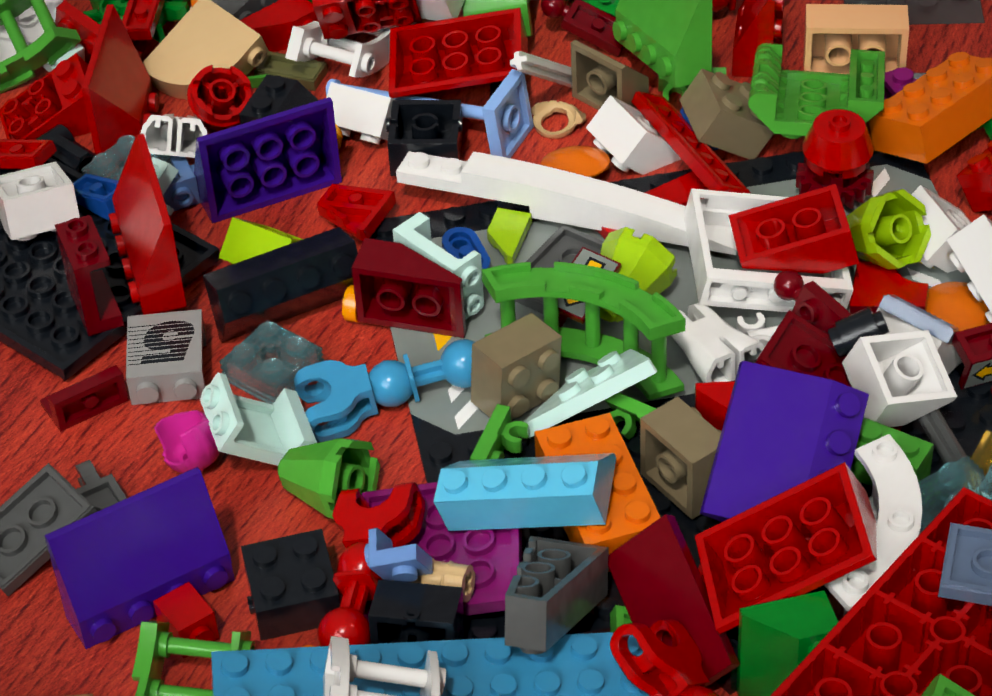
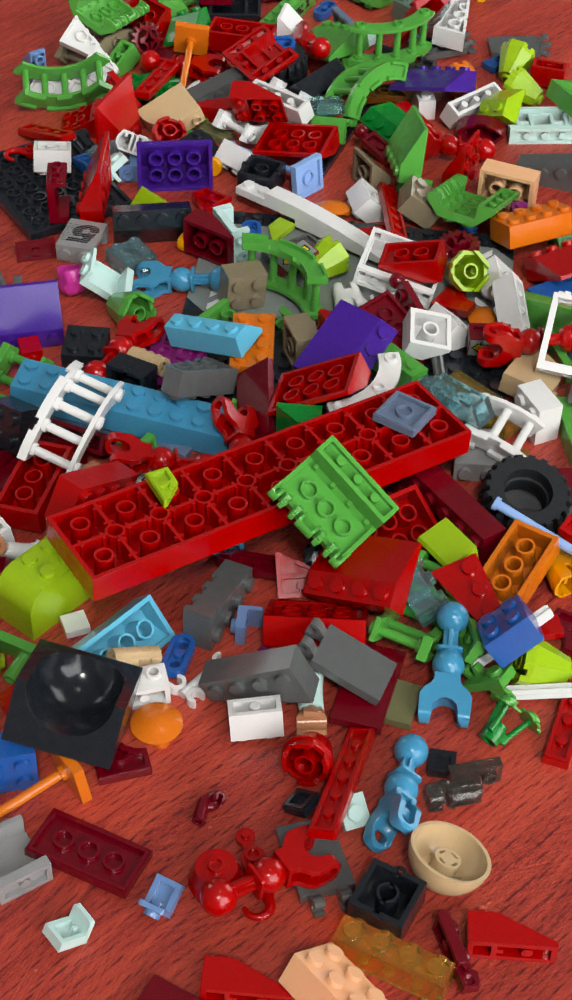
camera: 15 degrees right, 0 degrees up
(395, 563) = (132, 345): medium blue bracket -> none
(542, 68) = (333, 156): white axle -> none
(545, 109) = (331, 180): tan piece -> none
(590, 387) = (274, 301): light aqua wing -> none
(838, 144) = (463, 226): red cone -> none
(853, 327) = (417, 302): black brick -> none
(918, 317) = (453, 310): tile -> none

